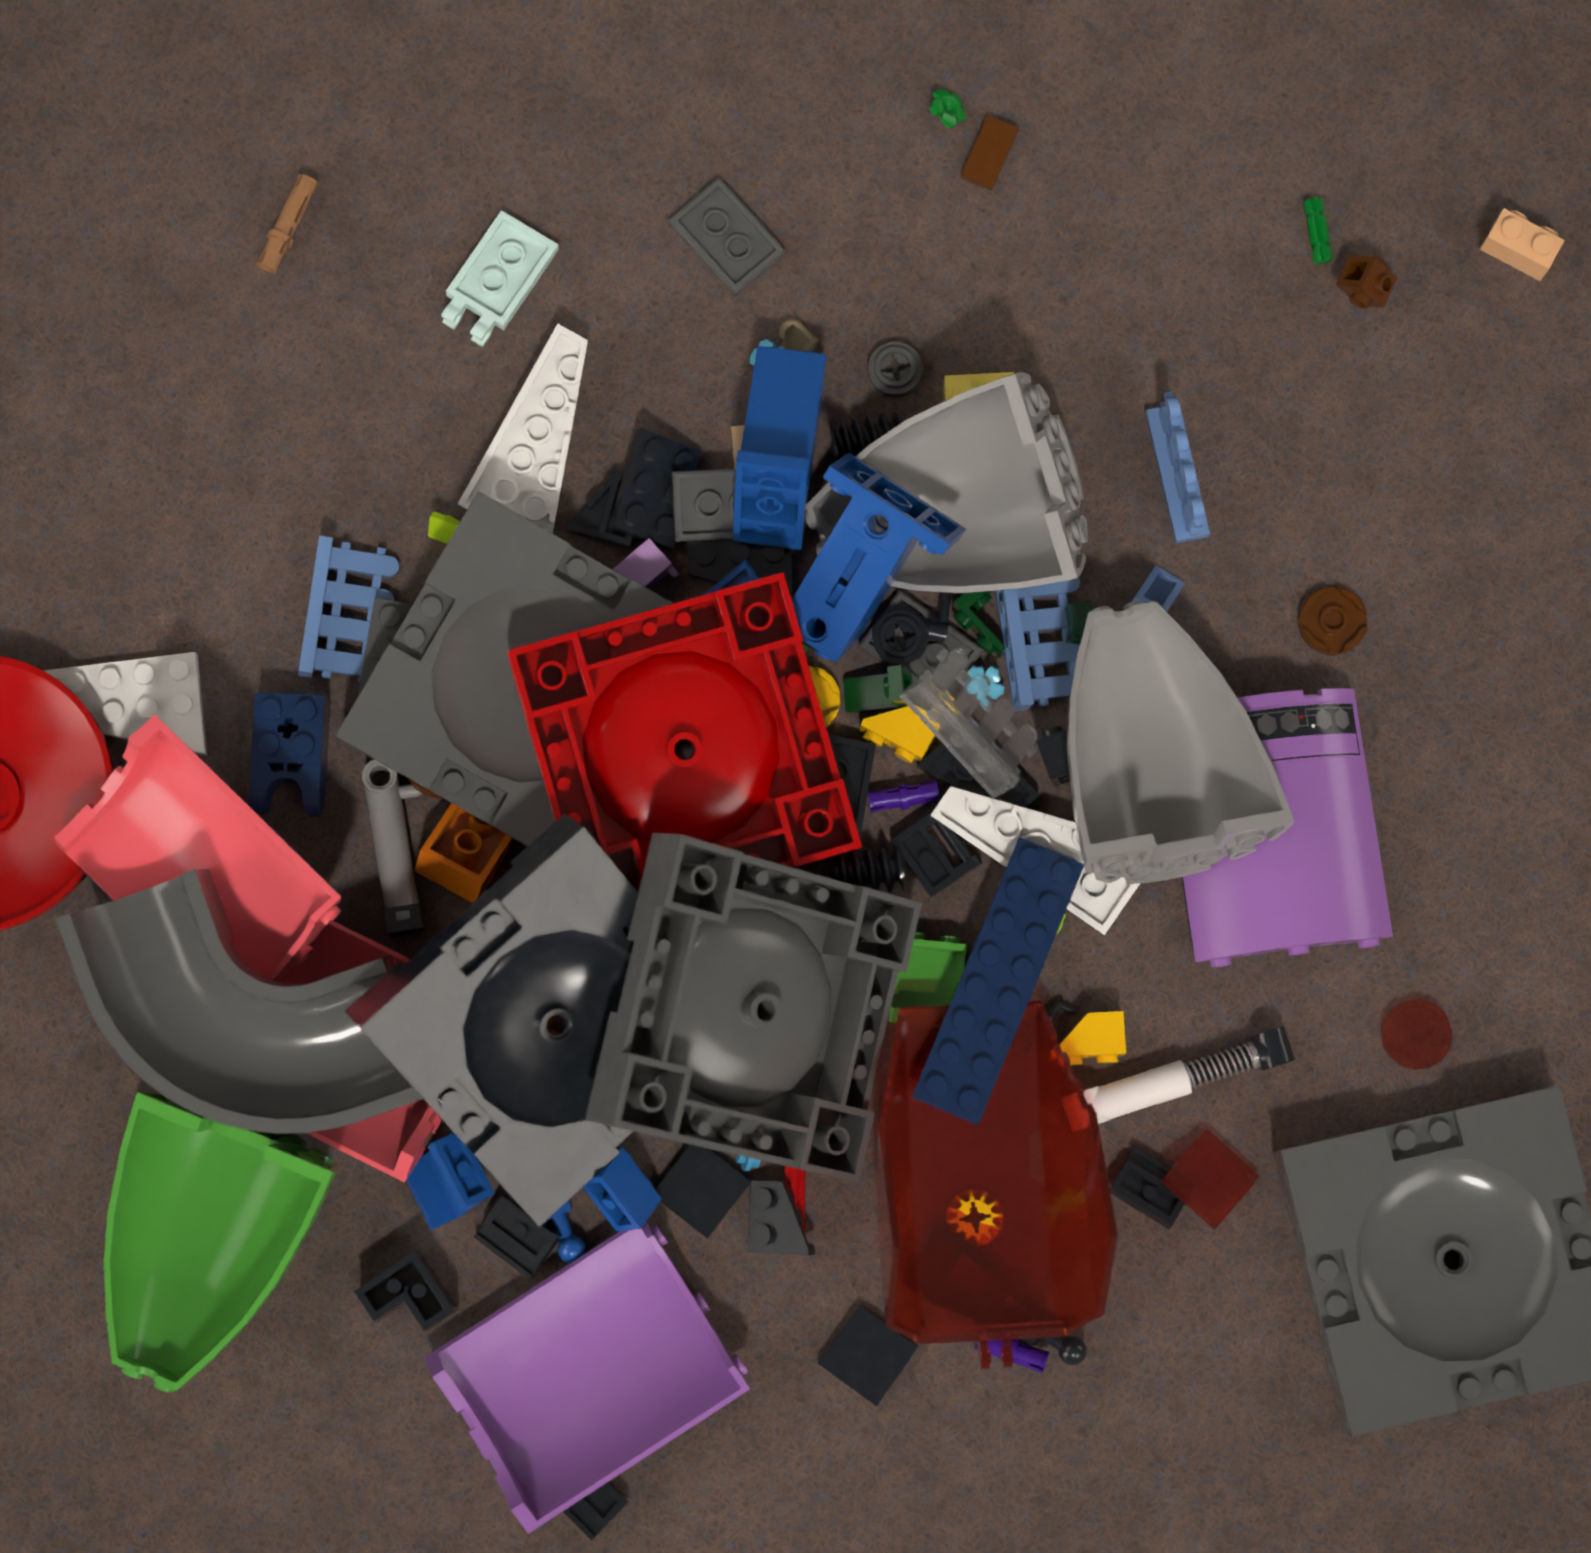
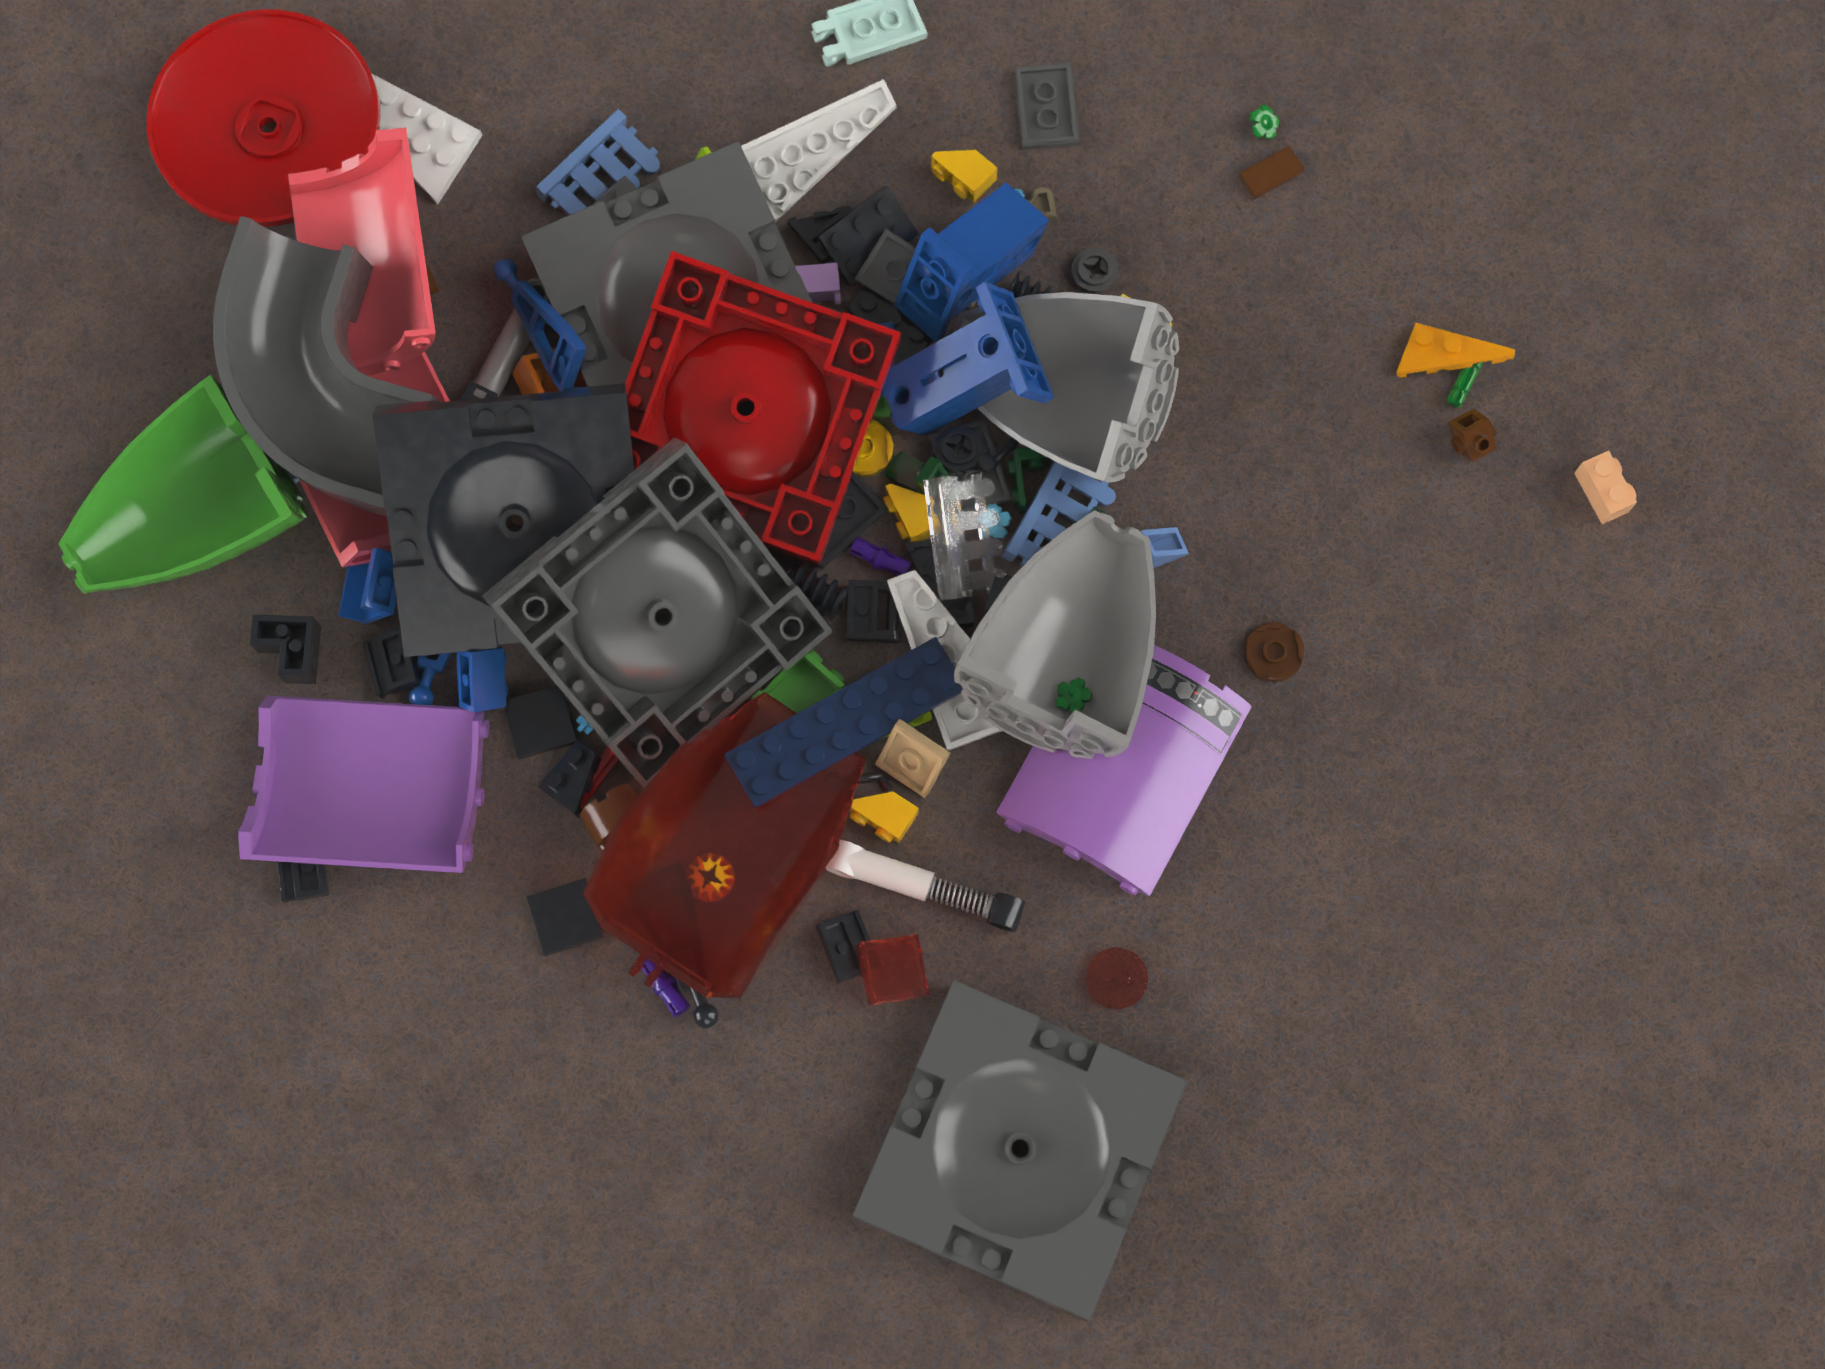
camera: 35 degrees right, 5 degrees down
(292, 759) = (485, 236): dark blue brick -> none
(470, 813) = (570, 350): none -> blue plate
(702, 358) = (965, 170): none -> yellow slope
(849, 1229) = (602, 816): none -> reddish brown brick
(1082, 968) = (912, 758): none -> tan tile
(1177, 470) = (1240, 473): medium blue fence -> none
(1191, 801) = (1073, 695): none -> green plant
(1272, 219) = (1438, 349): none -> light orange wing

